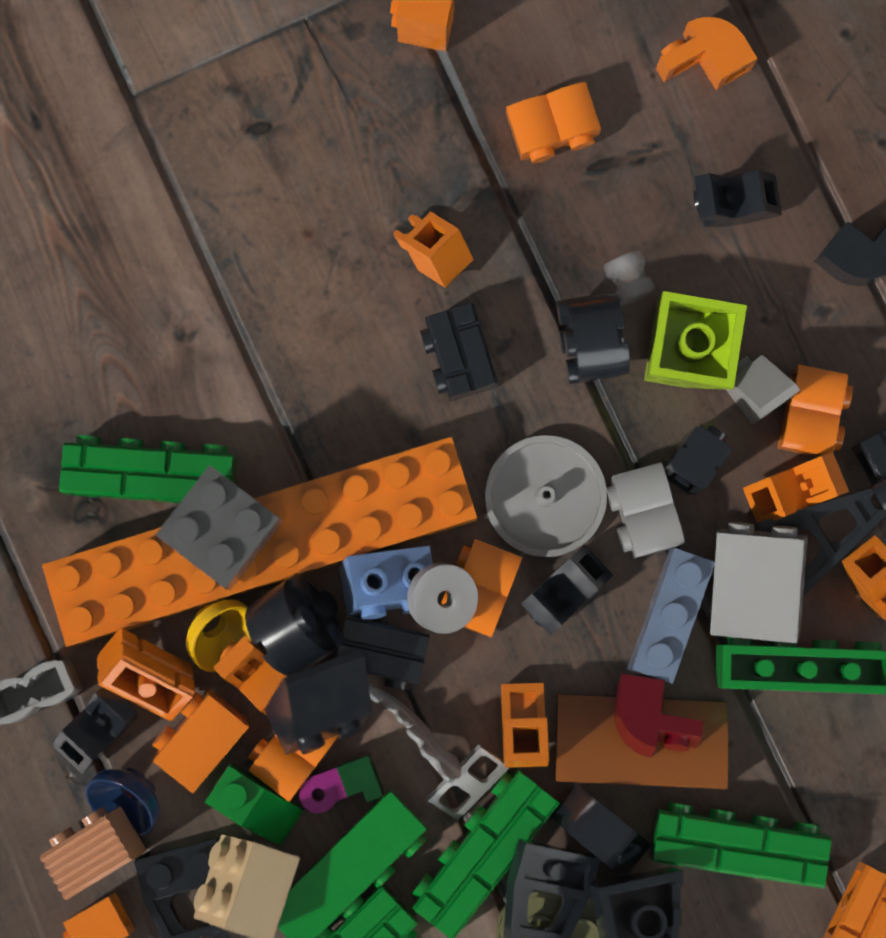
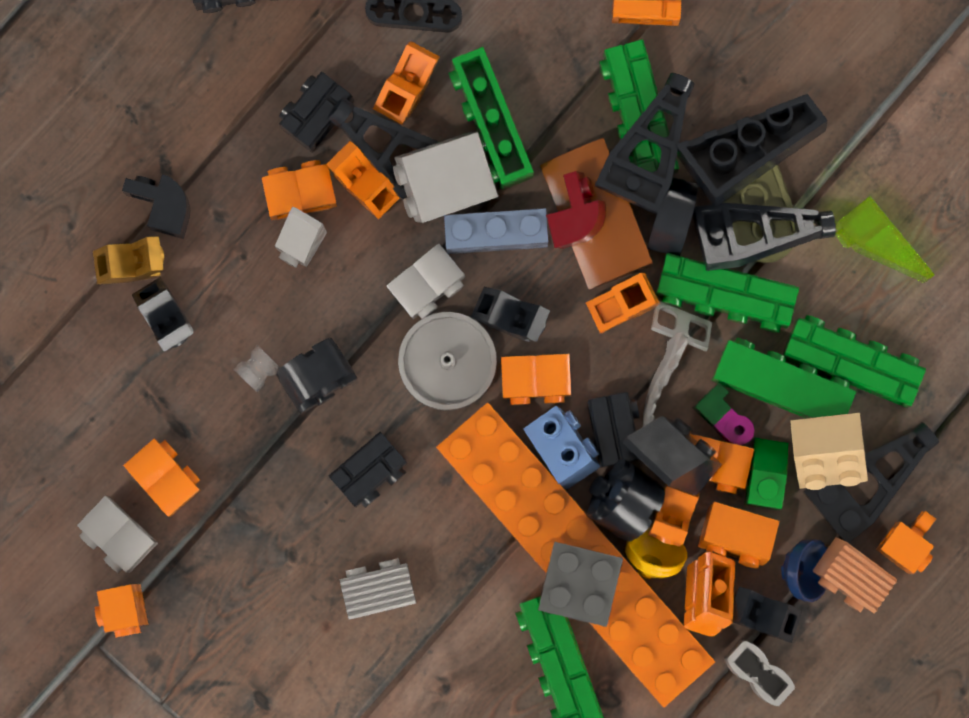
camera: 110 degrees left, 0 degrees up
(321, 304) = (377, 590): none -> light grey brick
(435, 248) = (298, 523): orange brick -> none
(460, 603) = (557, 386): light grey piece -> none
(511, 44) = (116, 535): none -> light grey brick
(656, 802) = (635, 183): none -> black plate
(695, 342) = (286, 299): lime slope -> none
(697, 459) = (373, 260): black brick -> none
(714, 45) = (50, 382): orange brick -> none
(814, 185) = (129, 261): none -> pearl gold brick

